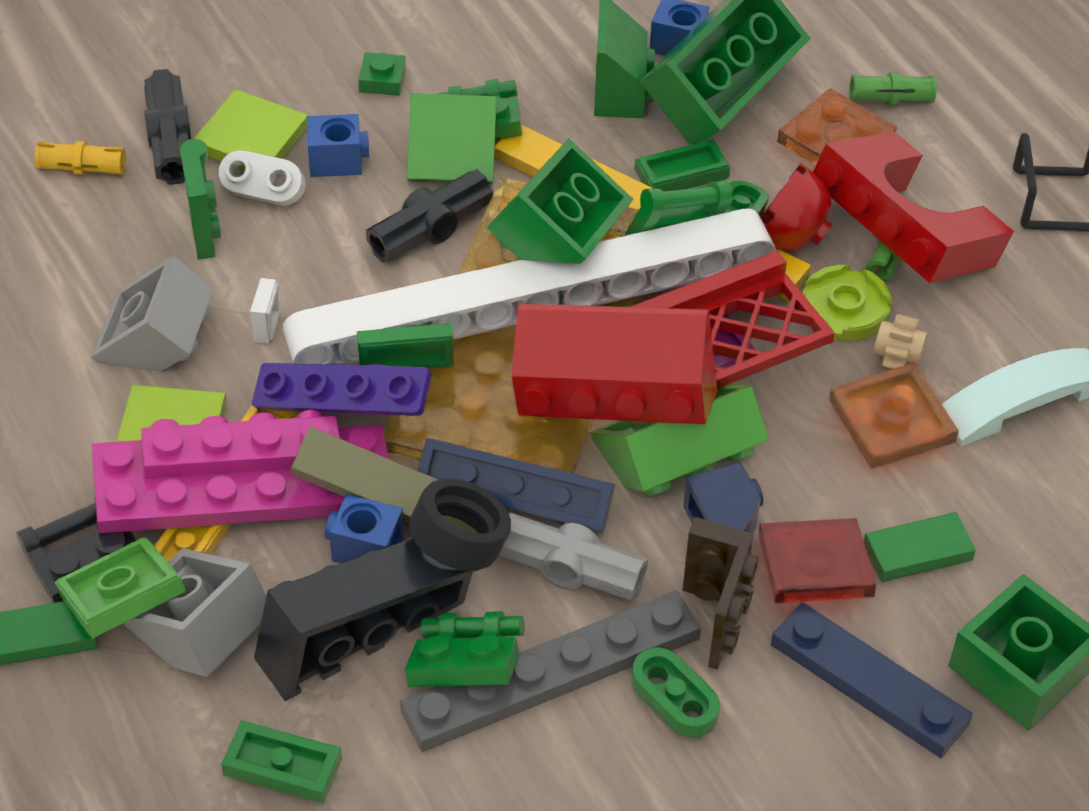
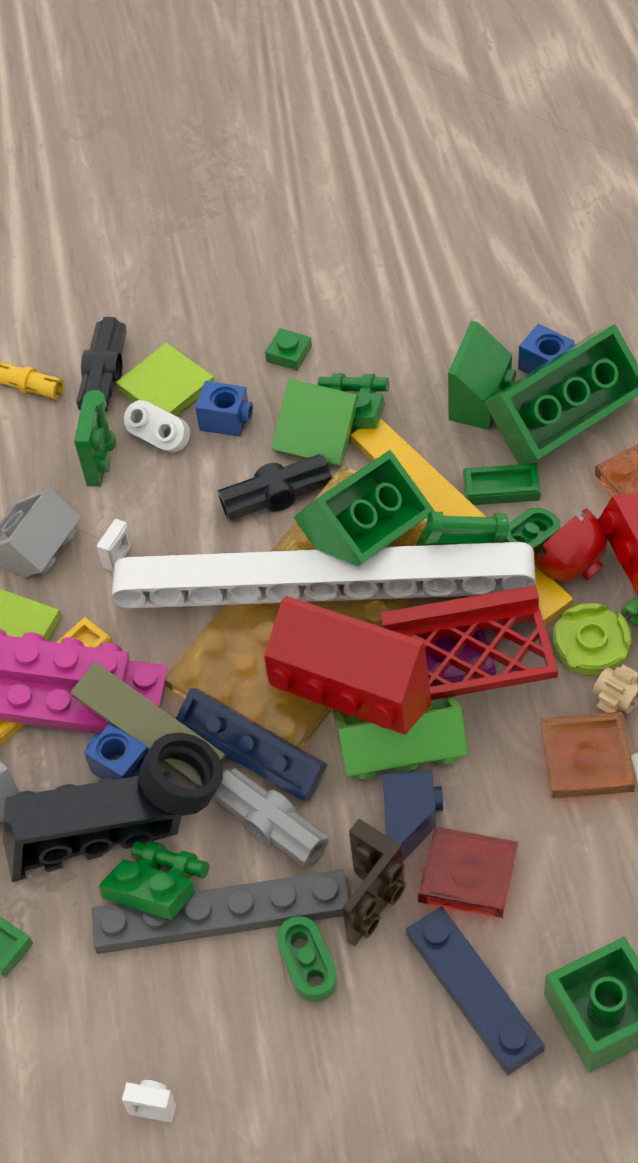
camera: 25 degrees right, 5 degrees up
(342, 388) = (138, 631): dark purple bracket -> none
(407, 346) = (201, 607): green tile -> none
(919, 546) = (563, 880): green tile -> none

